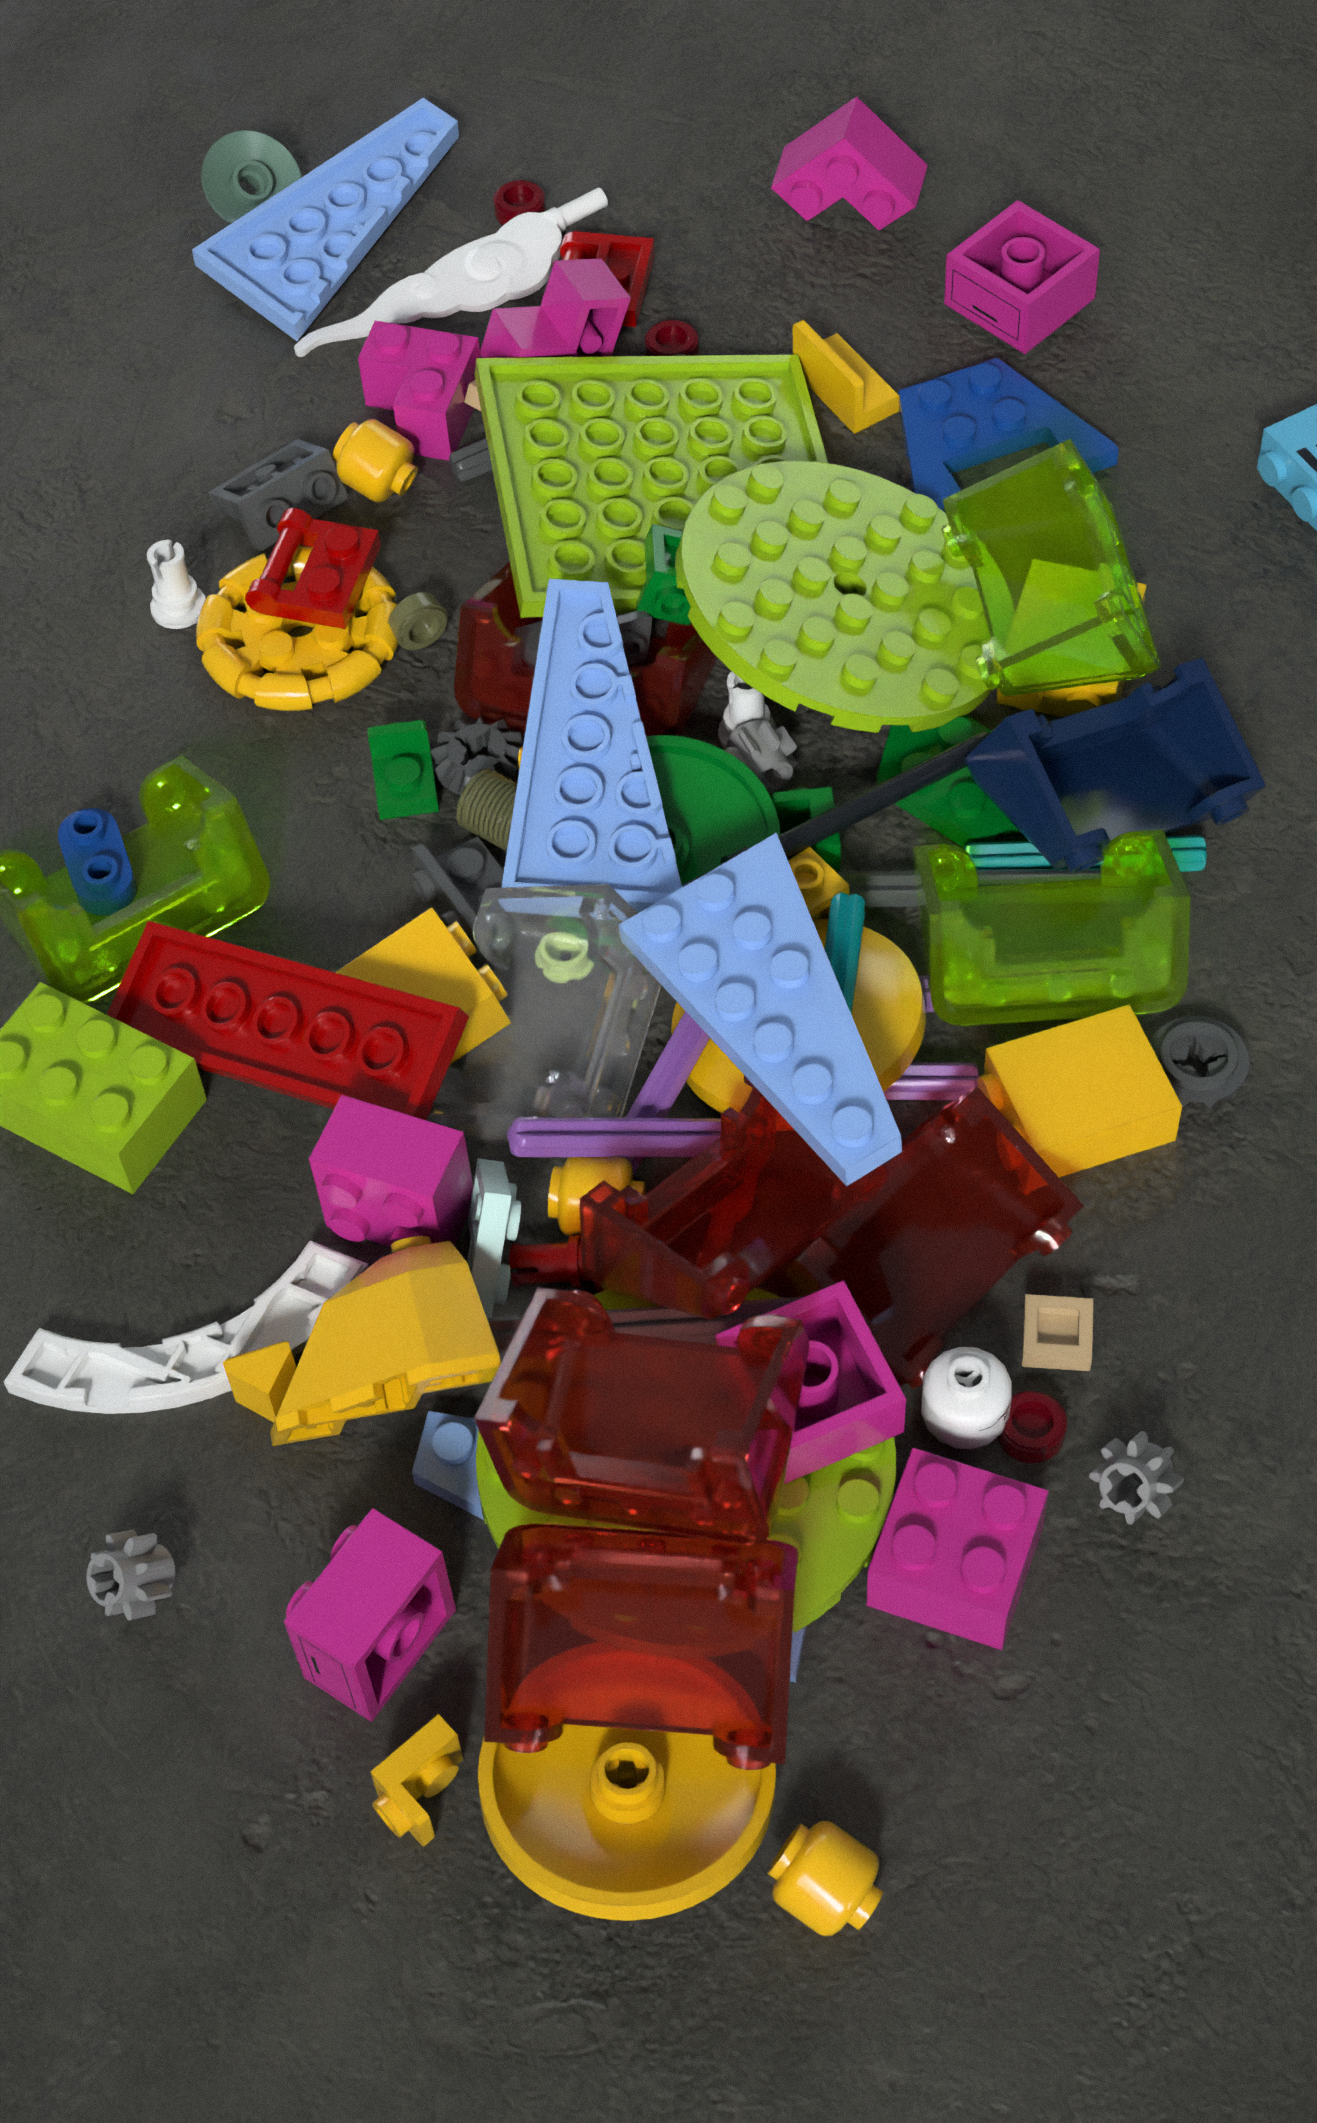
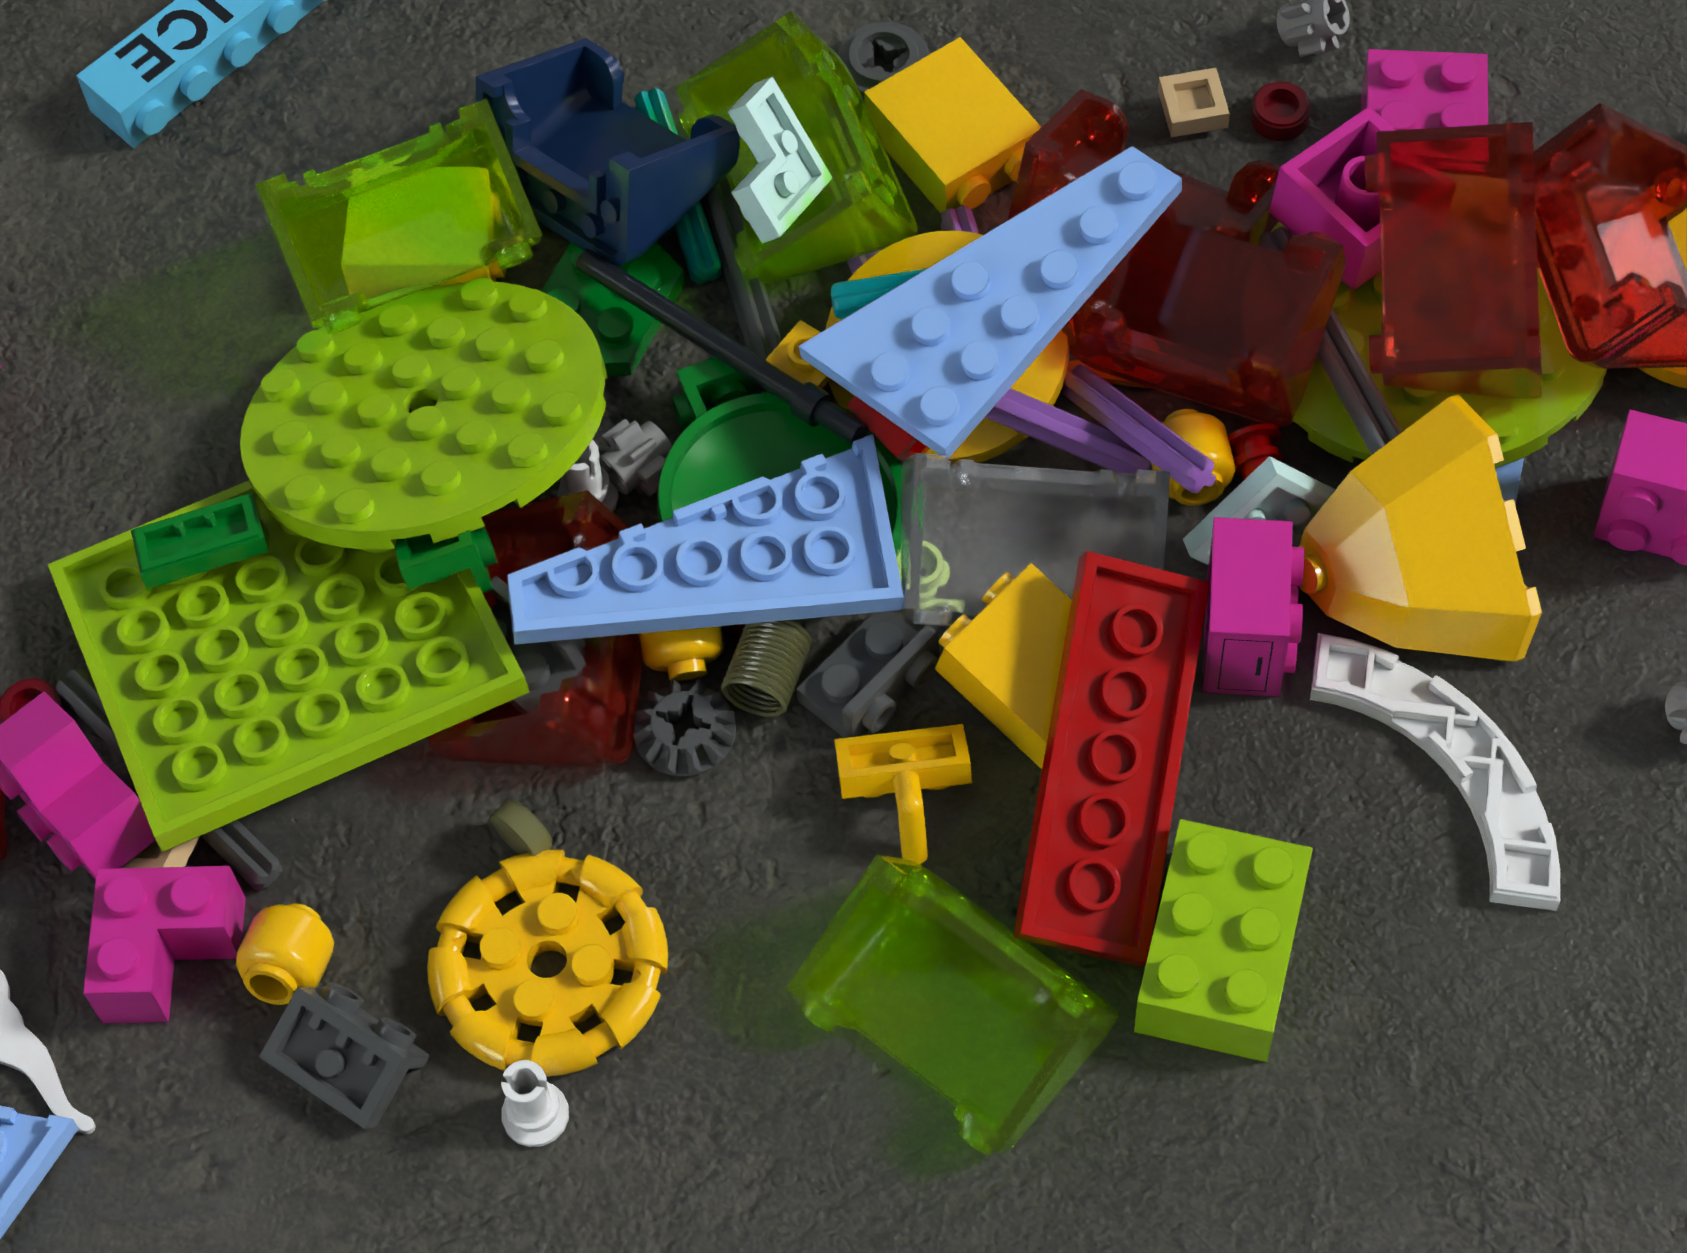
camera: 105 degrees left, 5 degrees up
(92, 851) = (934, 1049): blue plate -> none
(261, 1378) = (1472, 666): yellow slope -> none
(330, 578) = (484, 925): red plate -> none
(365, 891) = (904, 766): none -> yellow plate
(402, 769) = (728, 789): green bracket -> none
(762, 424) = (199, 540): none -> green plate
(843, 379) = (71, 520): yellow panel -> none
(966, 1397) = (1285, 129): white head -> none
(981, 417) = (107, 392): blue wing -> none
(1021, 896) = (787, 167): none -> light aqua plate

